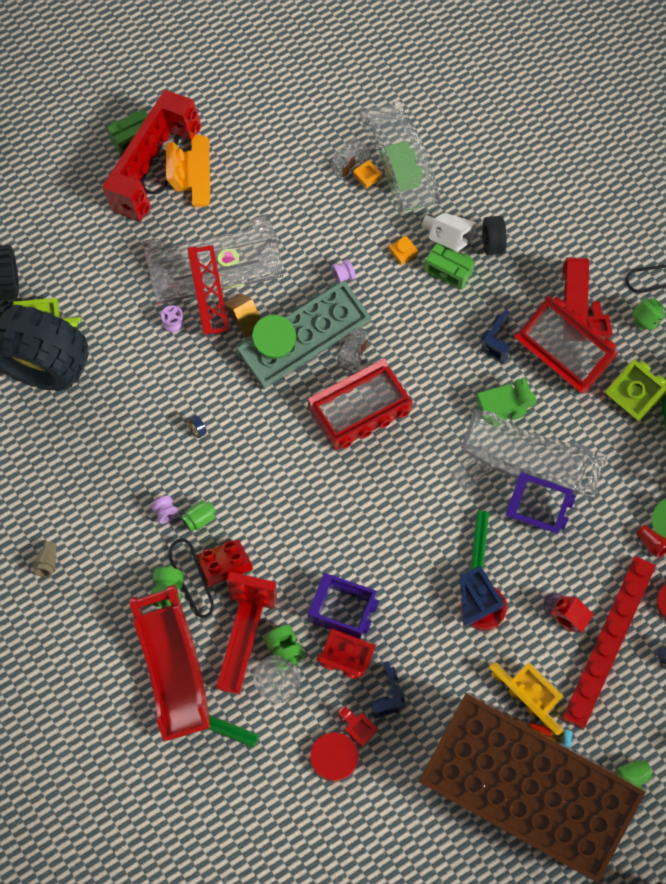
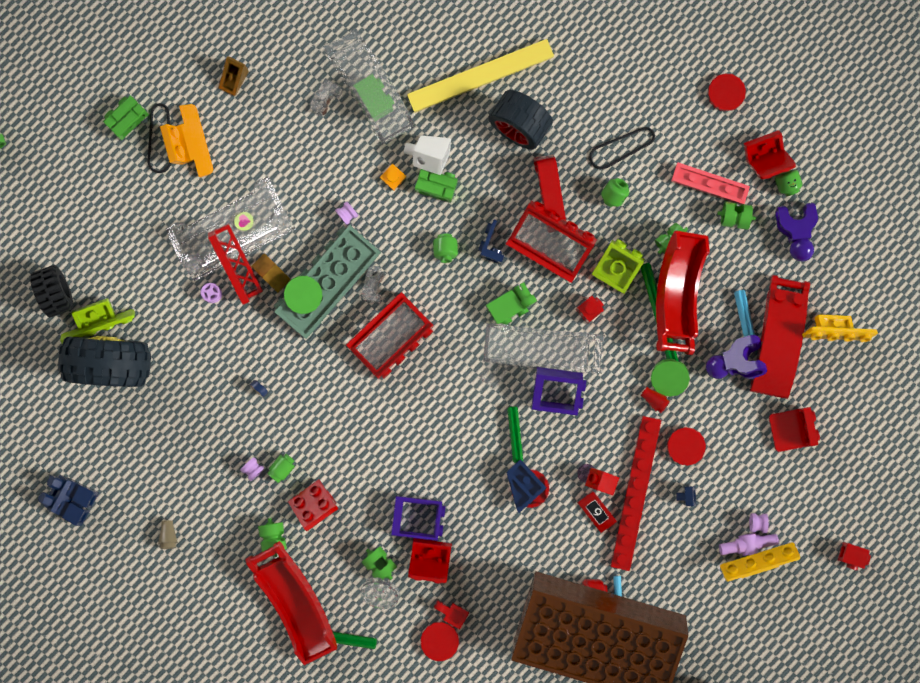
camera: 15 degrees left, 20 degrees up
(123, 186) = (152, 98): red plate -> none
(201, 574) = (289, 533): black piece -> none
(253, 596) = (343, 561): red bracket -> none
(258, 116) = (233, 76): none -> pearl gold slope
(367, 174) = (344, 109): light orange plate -> none
(385, 706) = (470, 592): dark blue bracket -> none
(444, 329) = (445, 248): none -> bright green head
(494, 235) = (469, 148): black tyre -> none
(522, 174) = (480, 75): none -> light yellow tile
(534, 691) = (584, 553): yellow bracket -> none
(558, 215) = (520, 119): none -> black wheel
(559, 650) = (597, 511): none -> slope
(595, 426) = (590, 309): none -> red brick
(600, 321) = (575, 210): red plate -> none
(636, 771) = (674, 600): bright green brick -> none

